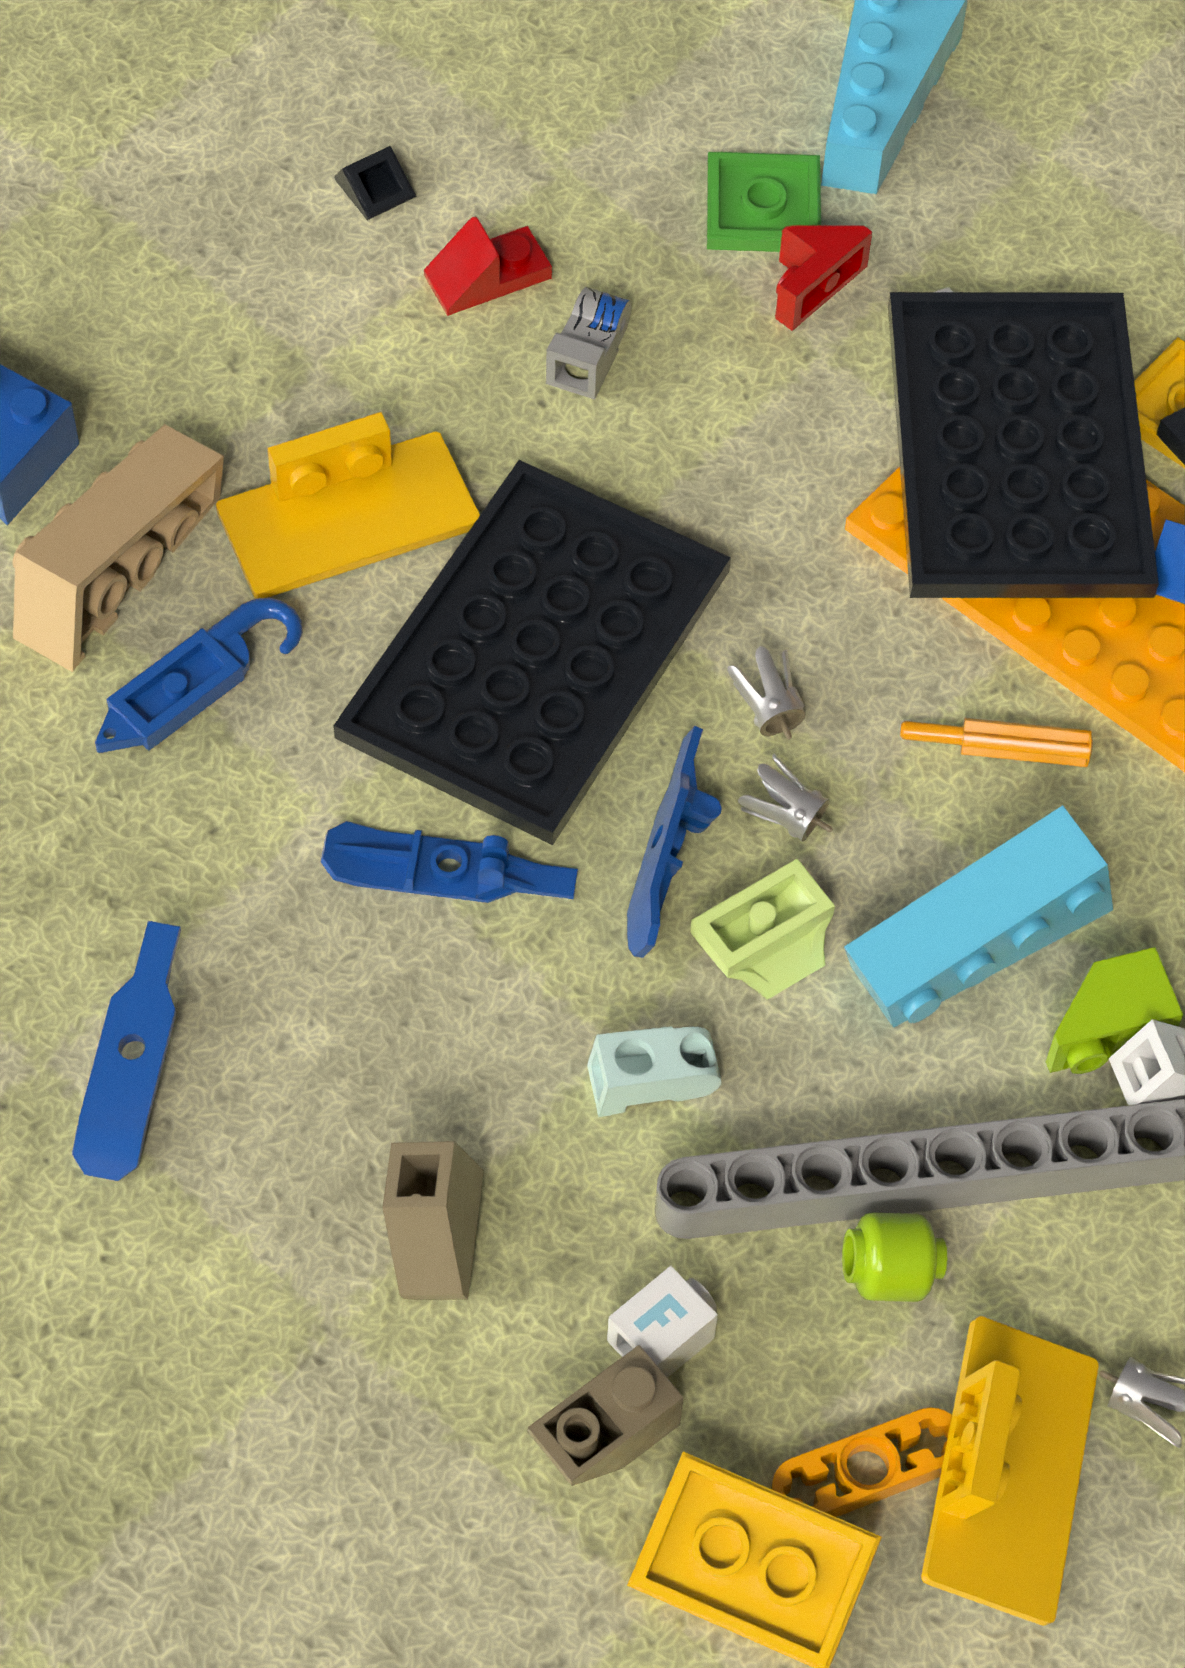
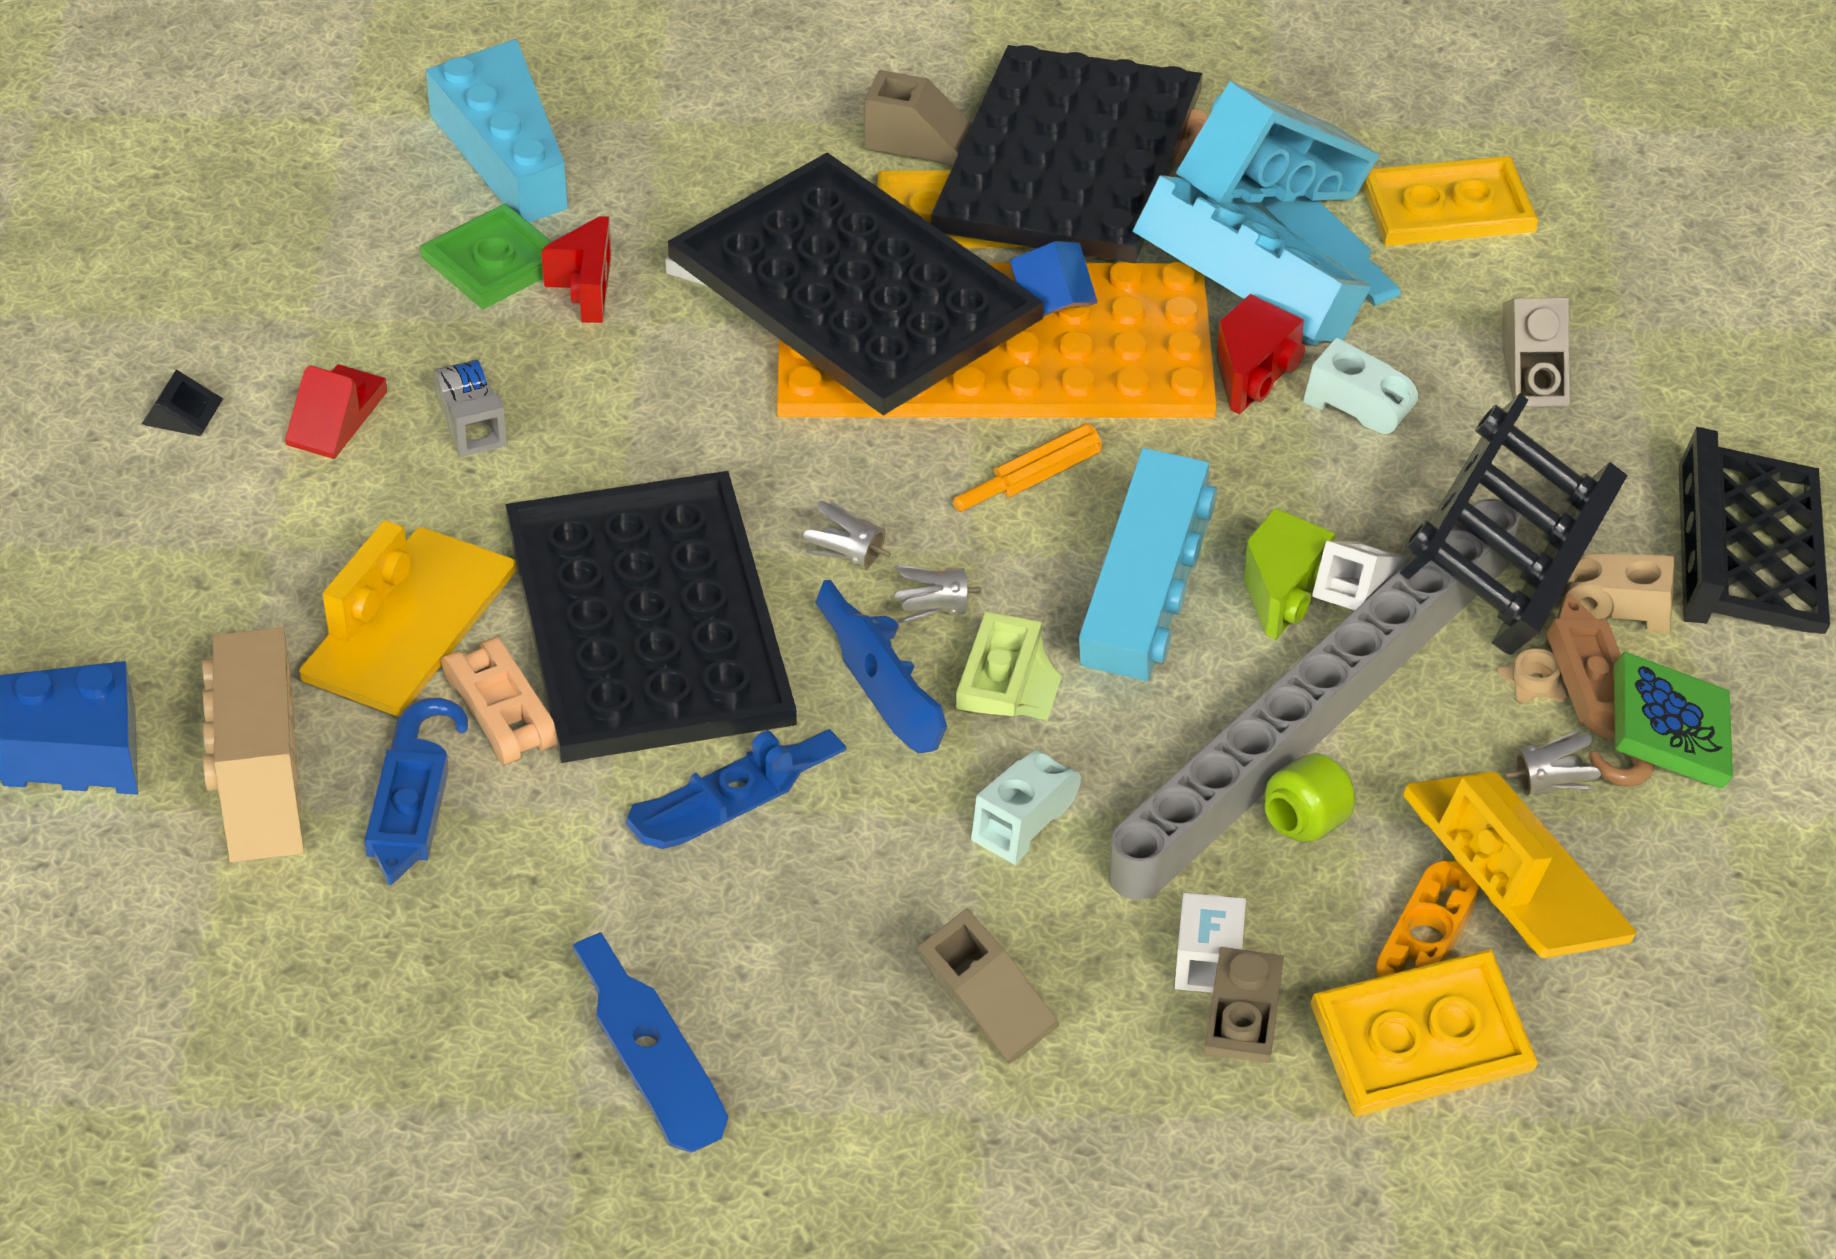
camera: 40 degrees left, 15 degrees down
(340, 641) = (499, 697): none -> light nougat plate

